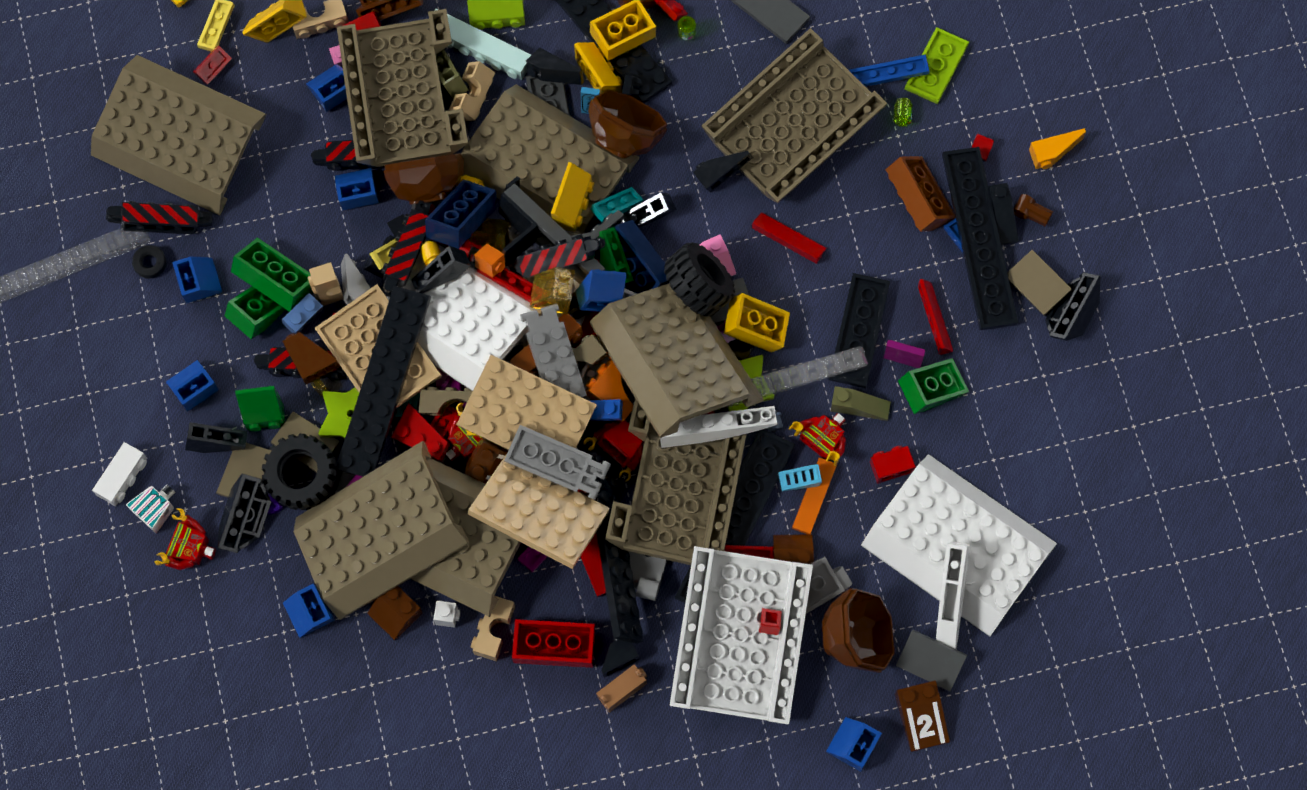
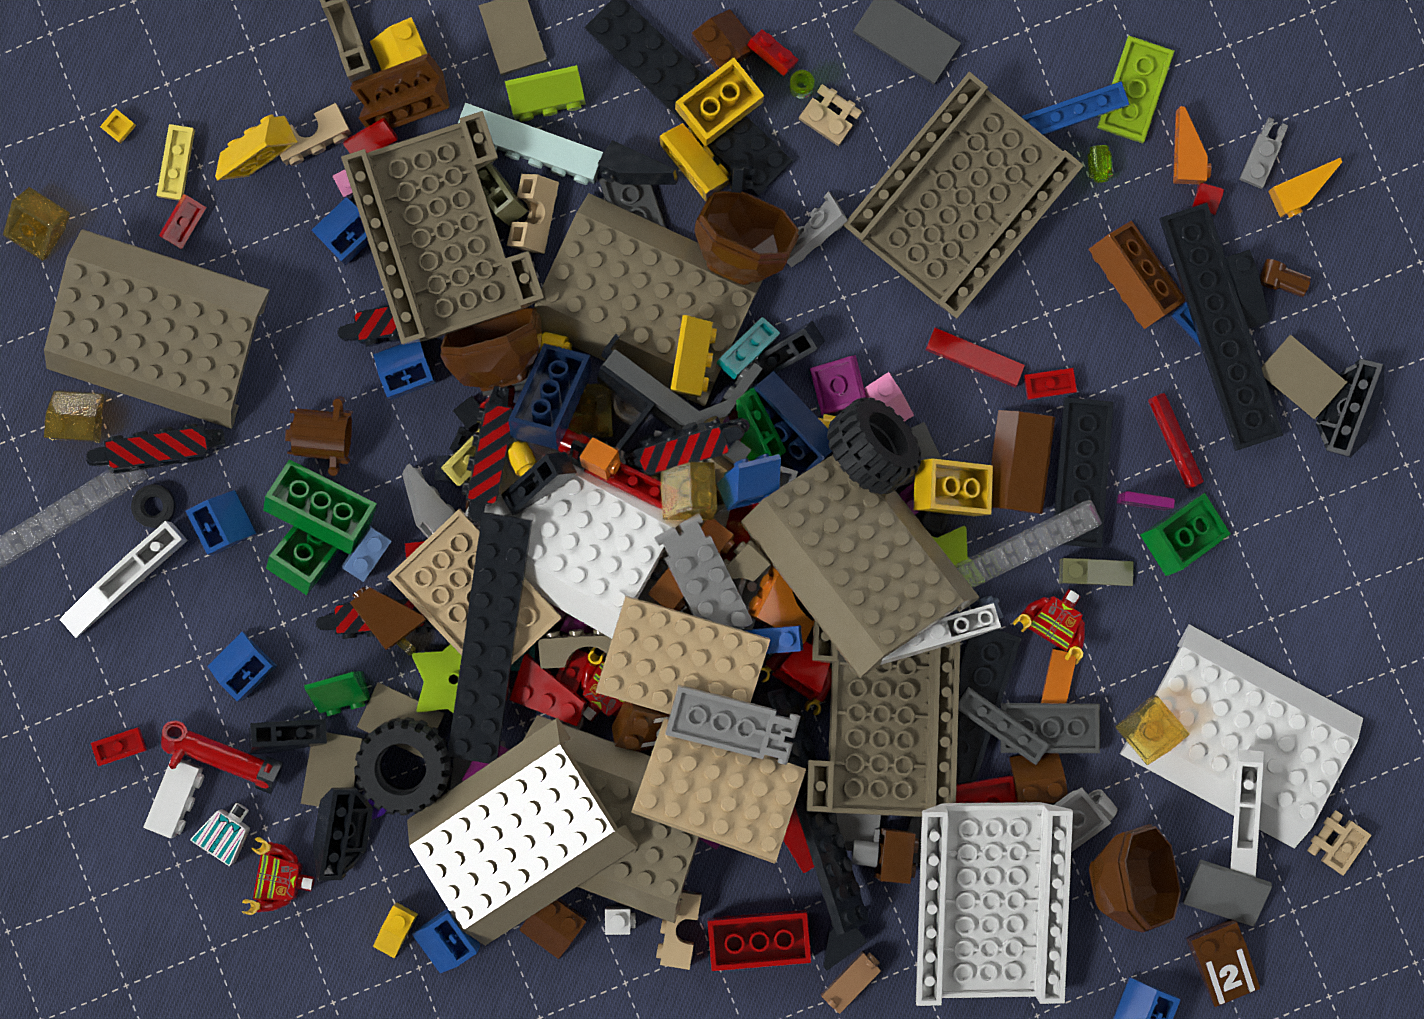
camera: 10 degrees left, 15 degrees up
(86, 431) = (118, 746): none -> red plate
(103, 190) = (74, 417): none -> clear yellow slope
(104, 52) = (35, 223): none -> clear yellow slope
(116, 307) = (123, 577): none -> white slope
(132, 431) = (262, 772): none -> red piece
(270, 598) = (395, 929): none -> yellow slope
(285, 224) = (322, 434): none -> reddish brown container
(325, 284) = (390, 514): tan arch -> none
(587, 95) = (690, 206): dark azure tile -> none
(671, 591) = (896, 856): none -> reddish brown slope
(679, 234) = (837, 384): none -> magenta tile
(684, 127) = (819, 227): none -> light grey wing
(701, 58) = (827, 122): none -> tan plate
(717, 170) = (869, 282): black slope -> none
(770, 506) = (1002, 726): none -> dark grey tile
(770, 621) = (1026, 881): red slope -> none
(799, 471) = (1055, 677): medium azure slope -> none
(807, 515) = (1062, 725): none -> dark grey tile
(813, 315) = (1021, 460): none -> reddish brown slope
(843, 262) = (1050, 383): none -> red plate
(885, 519) = (1152, 730): none -> clear yellow slope
(892, 464) = (1146, 646): red brick -> none
(972, 115) = (1190, 157): none -> orange slope
(1027, 123) = (1262, 155): none -> light grey hinge
(1032, 637) = (1344, 848): none -> tan plate

